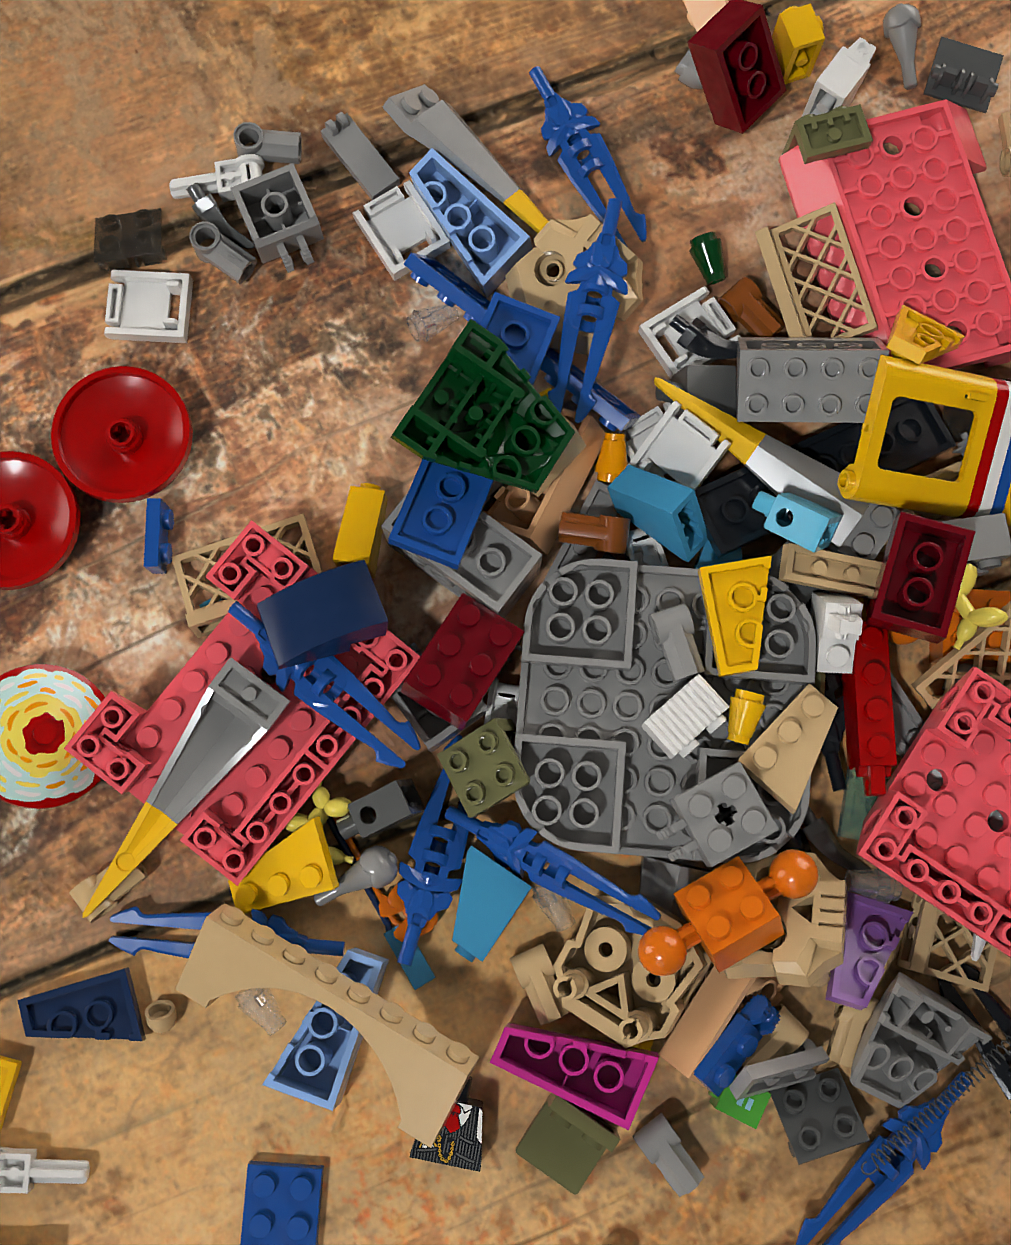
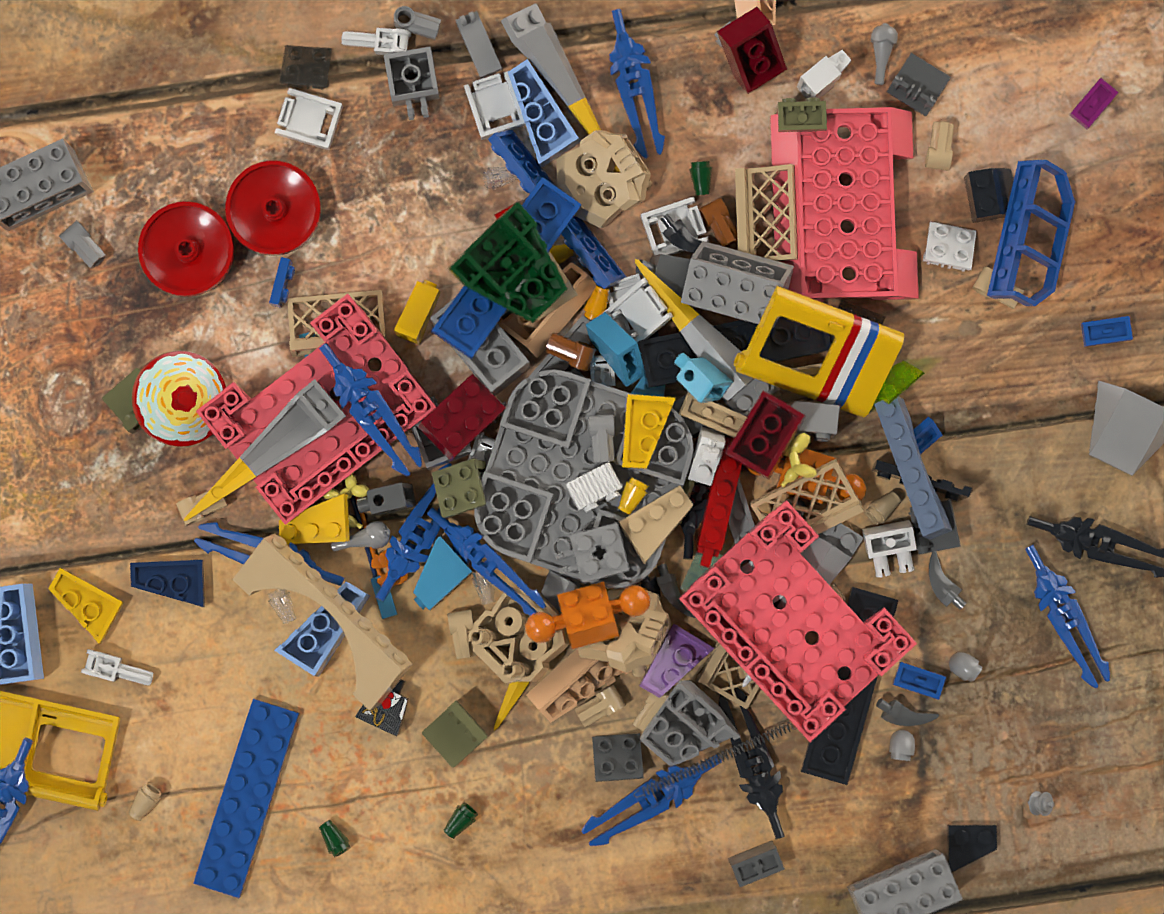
camera: 15 degrees right, 5 degrees up
(160, 1016) = (217, 595): tan hinge -> none
(208, 211) = (364, 61): dark grey bar -> none
(222, 253) = (369, 95): light grey piece -> none
(323, 615) = (379, 366): dark blue slope -> none
(579, 1069) = (477, 693): dark pink wedge -> none
(599, 271) = (616, 180): blue sword -> none
(663, 1147) = (515, 754): light grey piece -> none
(737, 1044) = (575, 698): blue hinge -> none
(746, 1110) = (570, 733): bright green brick -> none
(779, 1071) = (598, 722): light grey hinge -> none
(798, 41) = (801, 38): yellow brick -> none
(873, 884) = (691, 624): clear cone -> none
(920, 337) = (815, 276): yellow wing -> none

